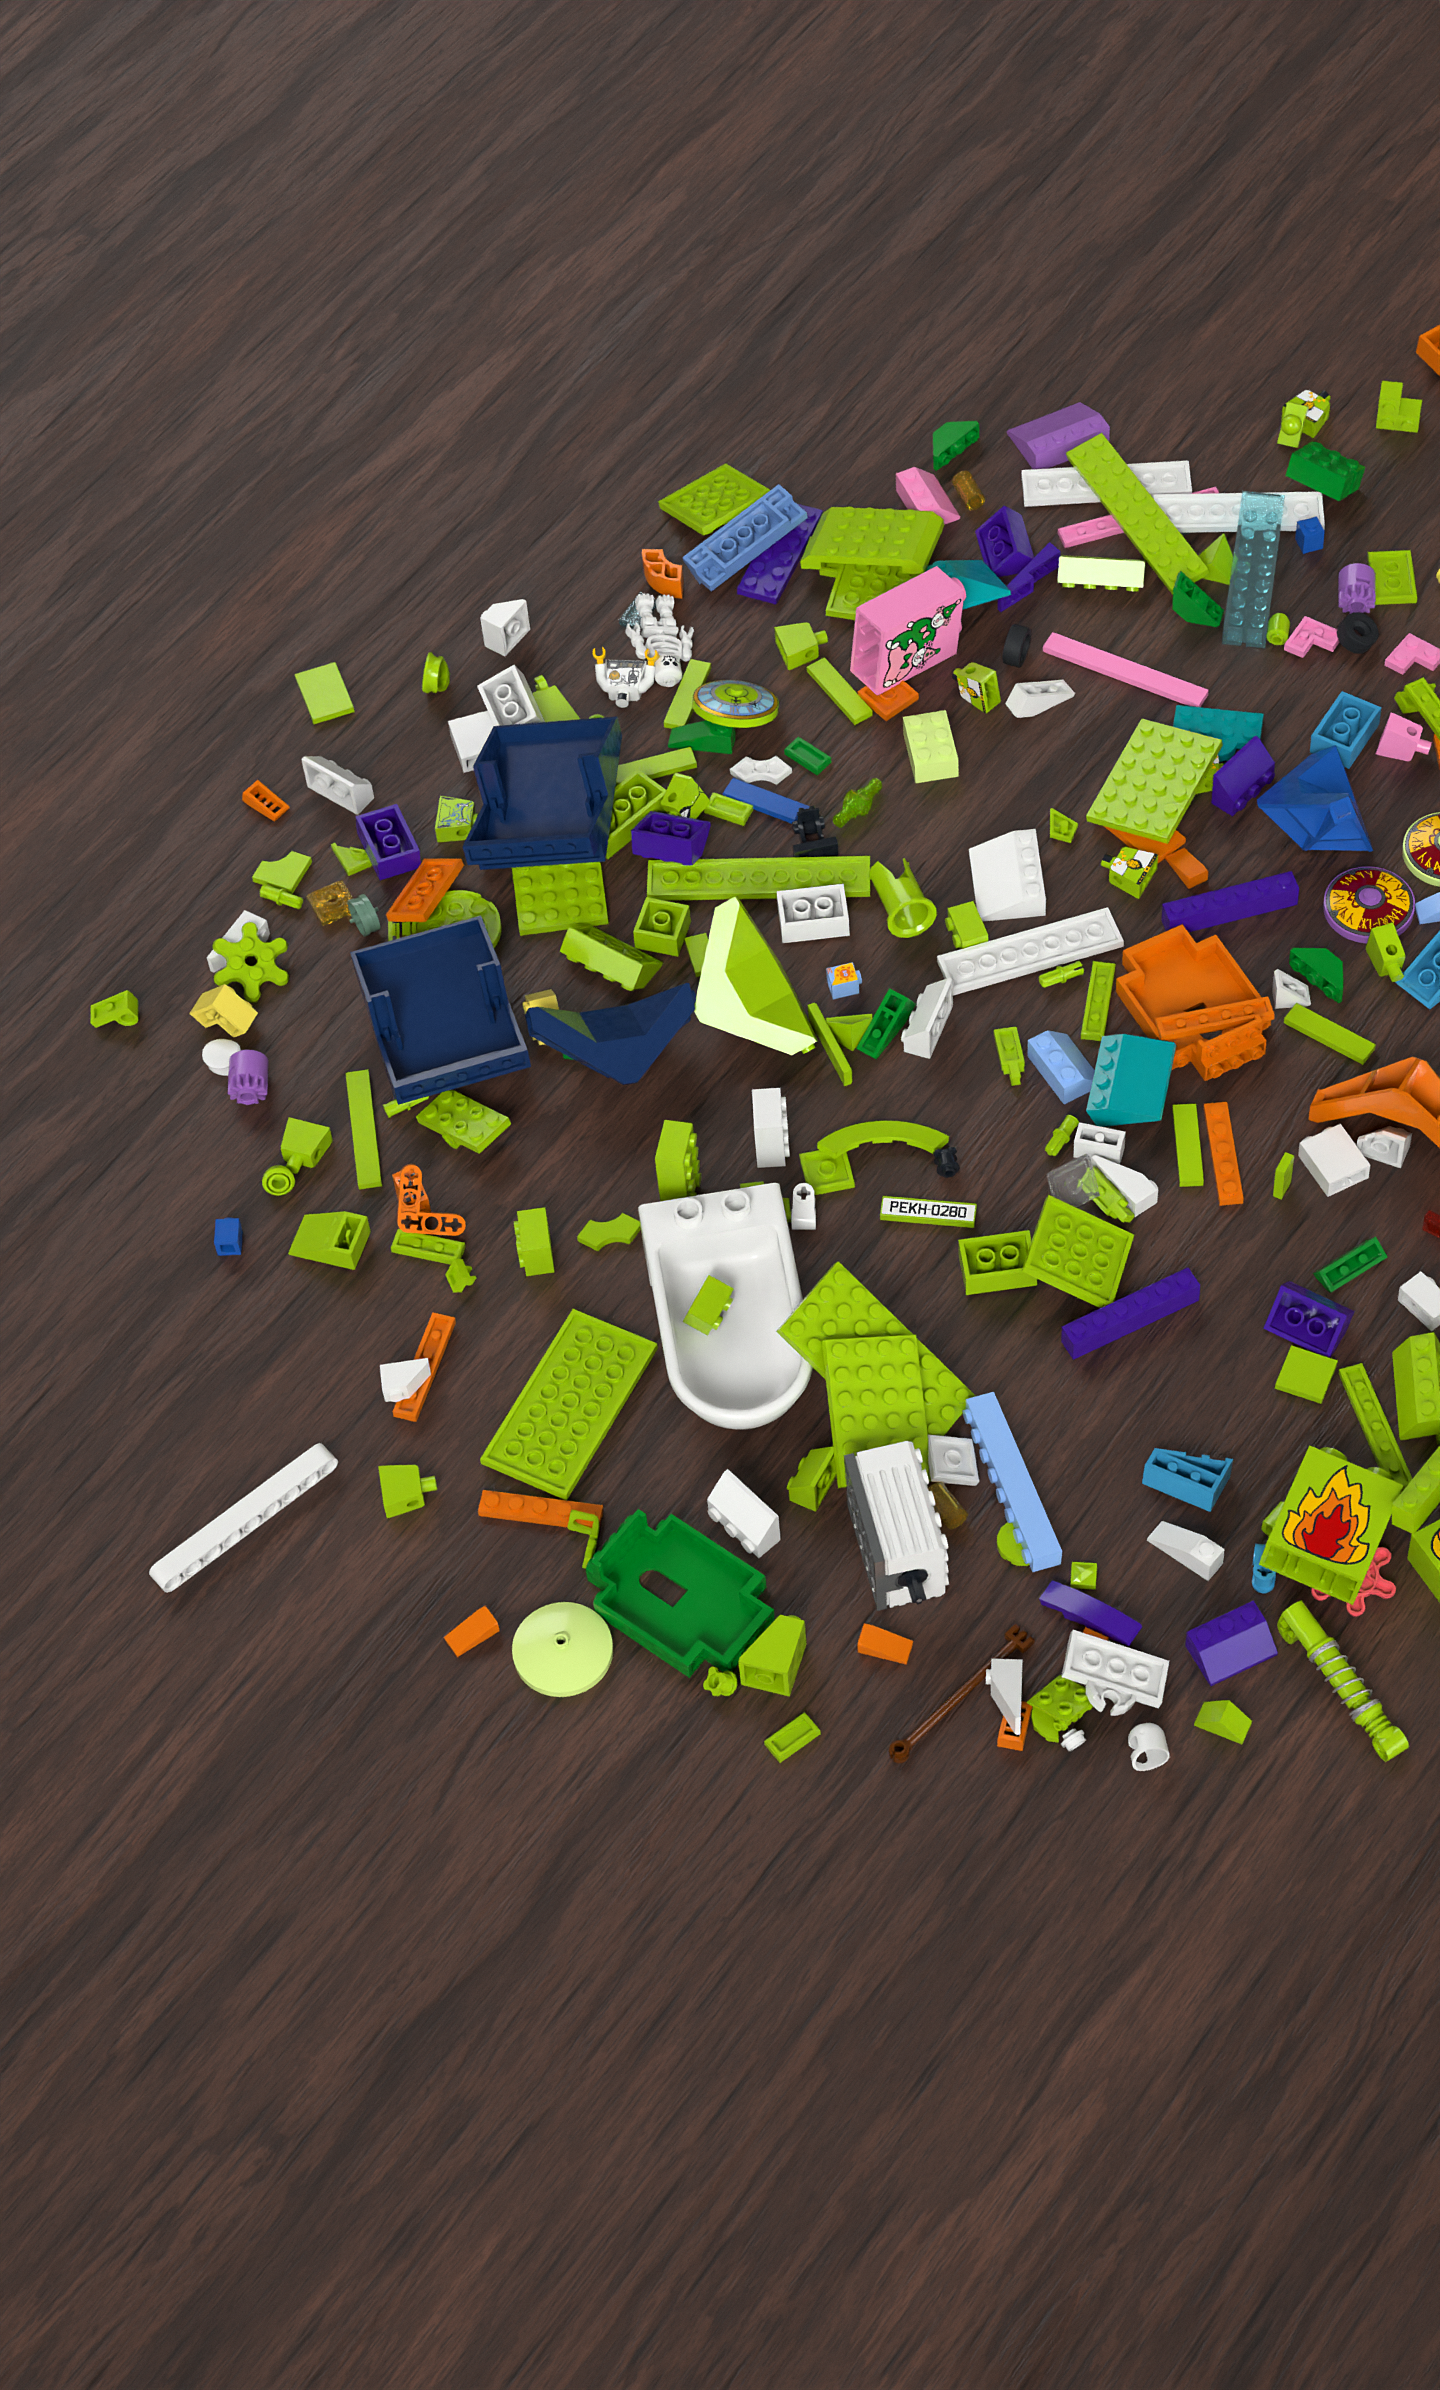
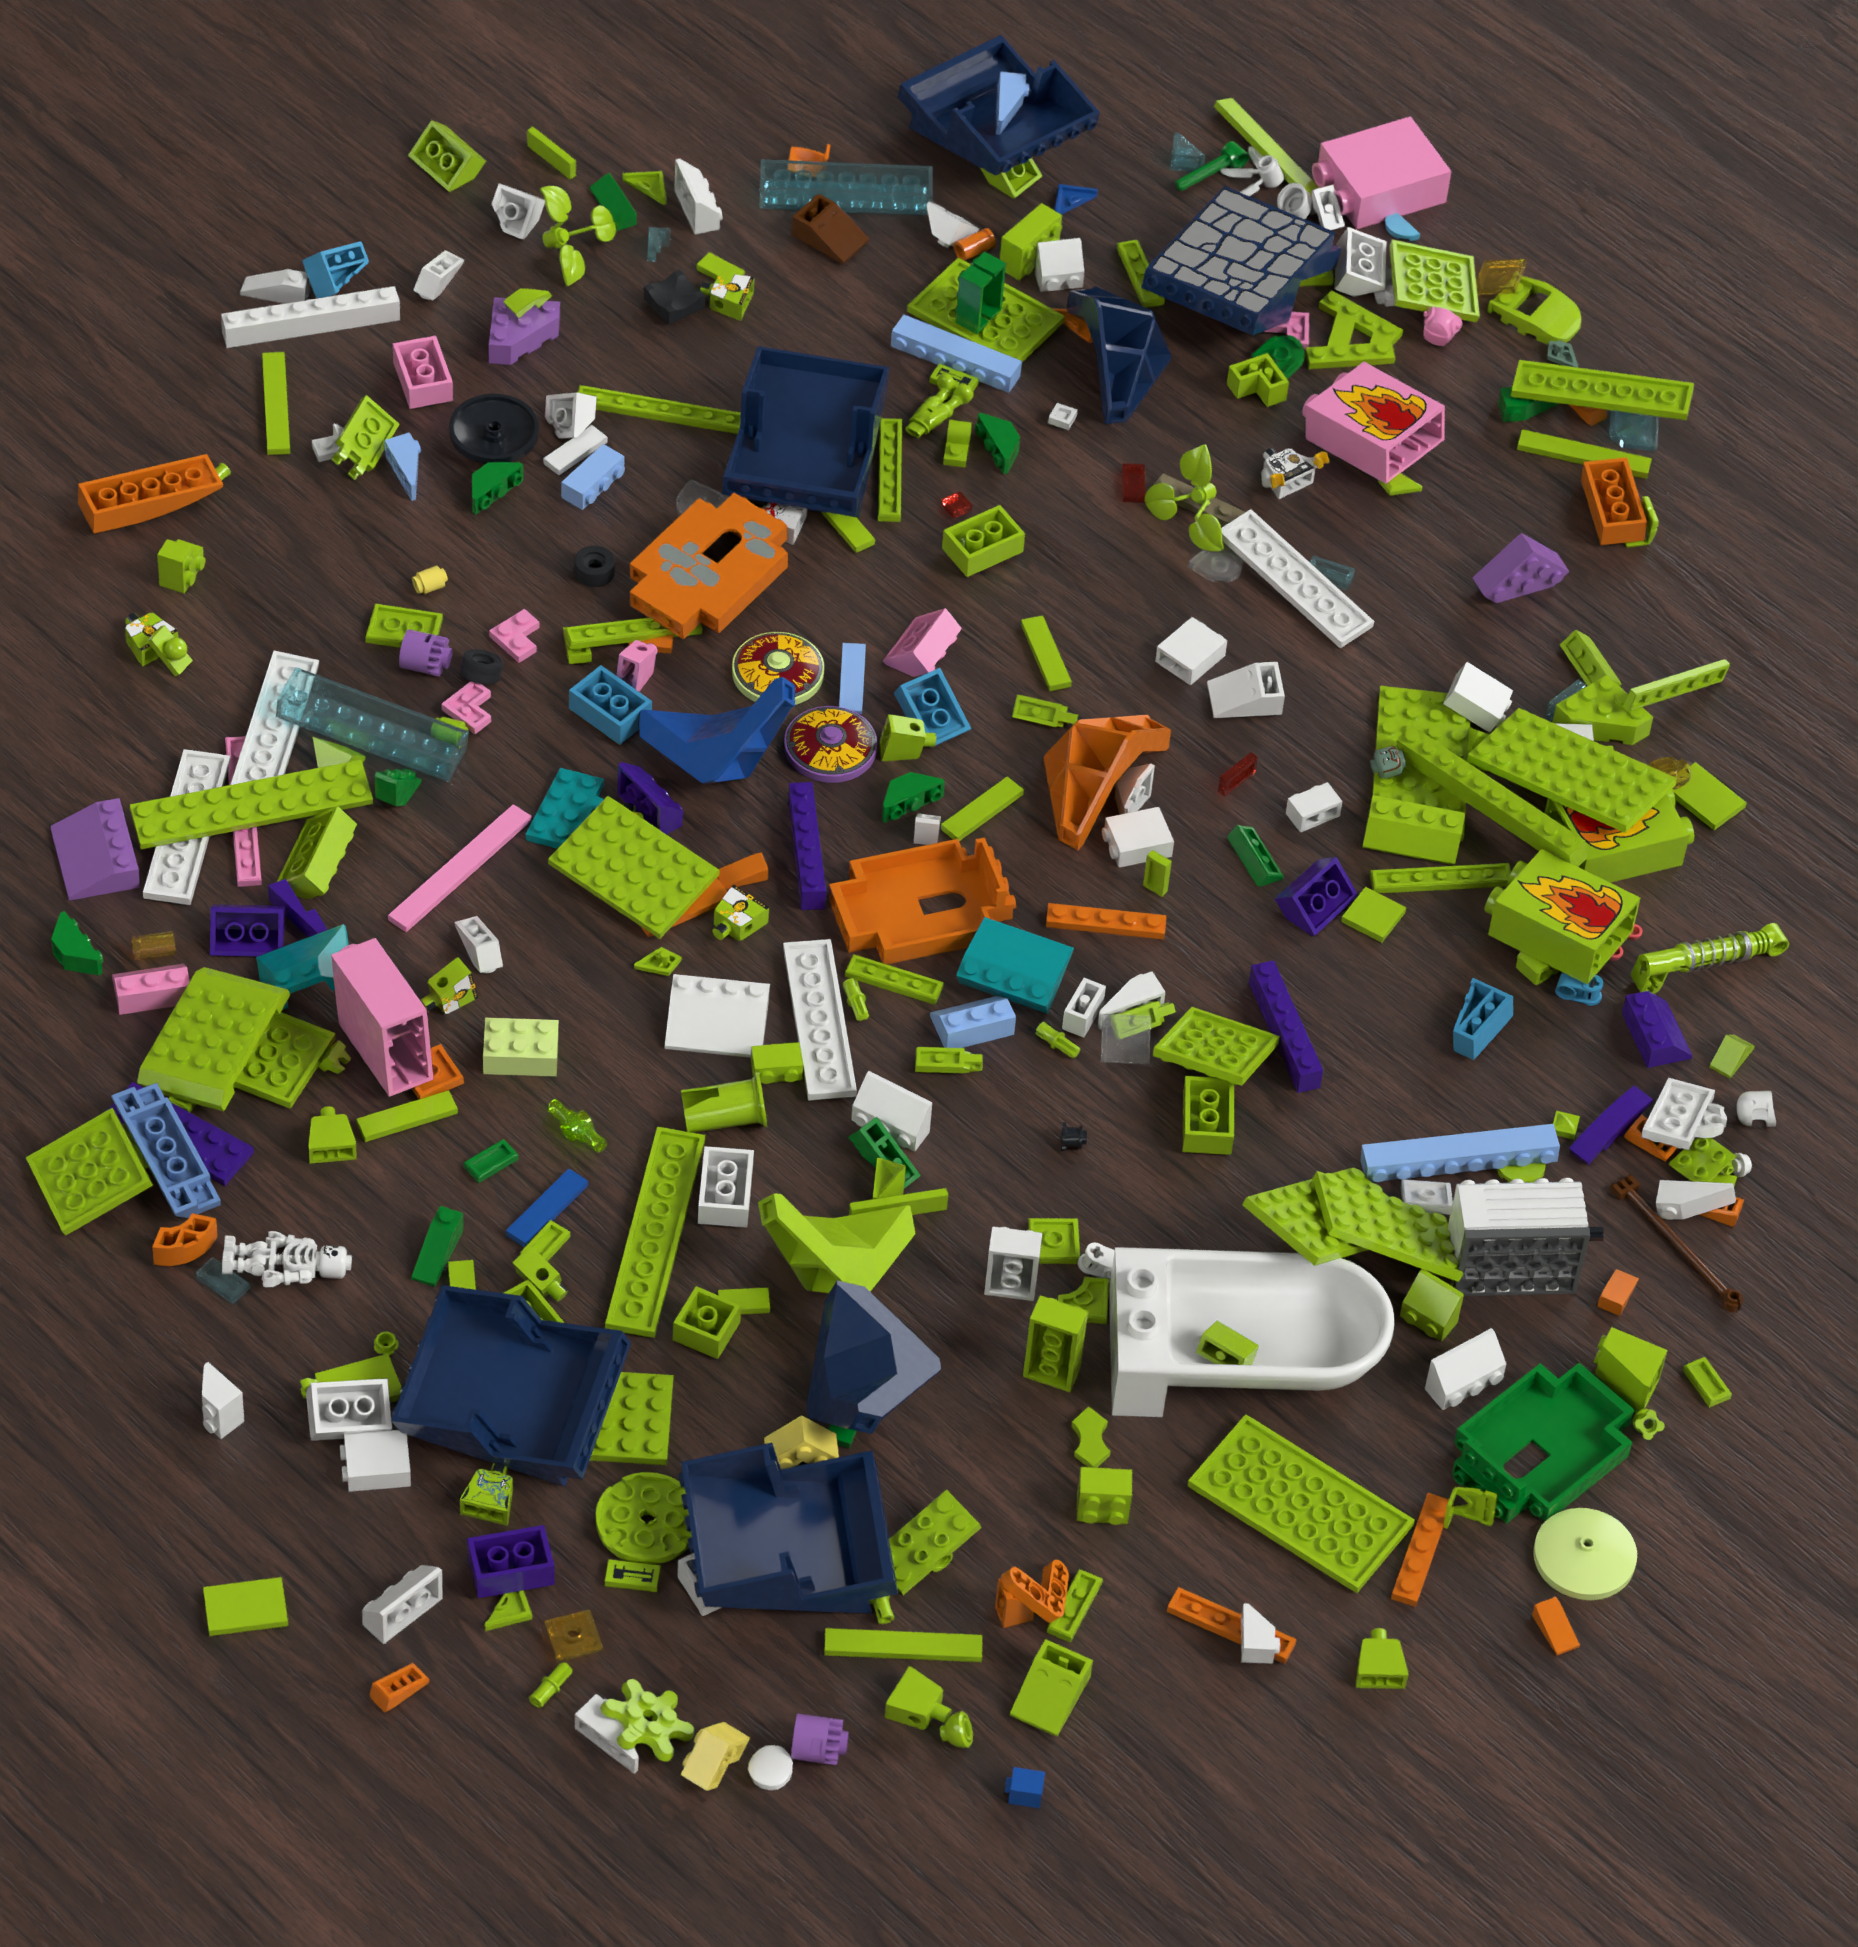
camera: 90 degrees left, 5 degrees down
(119, 1007) = (679, 1869): lime plate -> none
(243, 1517) = (1391, 1813): white beam -> none
(283, 873) = (513, 1679): lime tile -> none
(363, 915) = (613, 1598): sand green wheel -> none
(424, 890) = (594, 1534): orange plate -> none
(436, 674) = (266, 1484): lime hat -> none
(459, 1276) = (1124, 1578): lime tile -> none
(609, 956) = (730, 1379): lime slope -> none
(625, 678) = (330, 1302): white torso -> none
(670, 838) = (591, 1288): dark purple slope -> none
(681, 706) = (369, 1254): lime tile -> none
(735, 703) = (410, 1203): dish -> none
(770, 770) = (496, 1215): white tile -> none
(808, 823) = (628, 1172): black tile -> none
(843, 980) = (817, 1180): light blue brick -> none
(882, 1132) = (1020, 1182): lime tile -> none
(928, 1211) = (1124, 1166): tile -> none
(1016, 645) = (414, 937): black tyre -> none
(1187, 1145) = (1096, 945): lime tile -> none
(1188, 1548) = (1551, 1038): white slope -> none
(1213, 1018) = (962, 880): orange plate -> none
(1309, 535) = (330, 668): blue brick -> none
(1325, 471) = (249, 638): green piece -> none

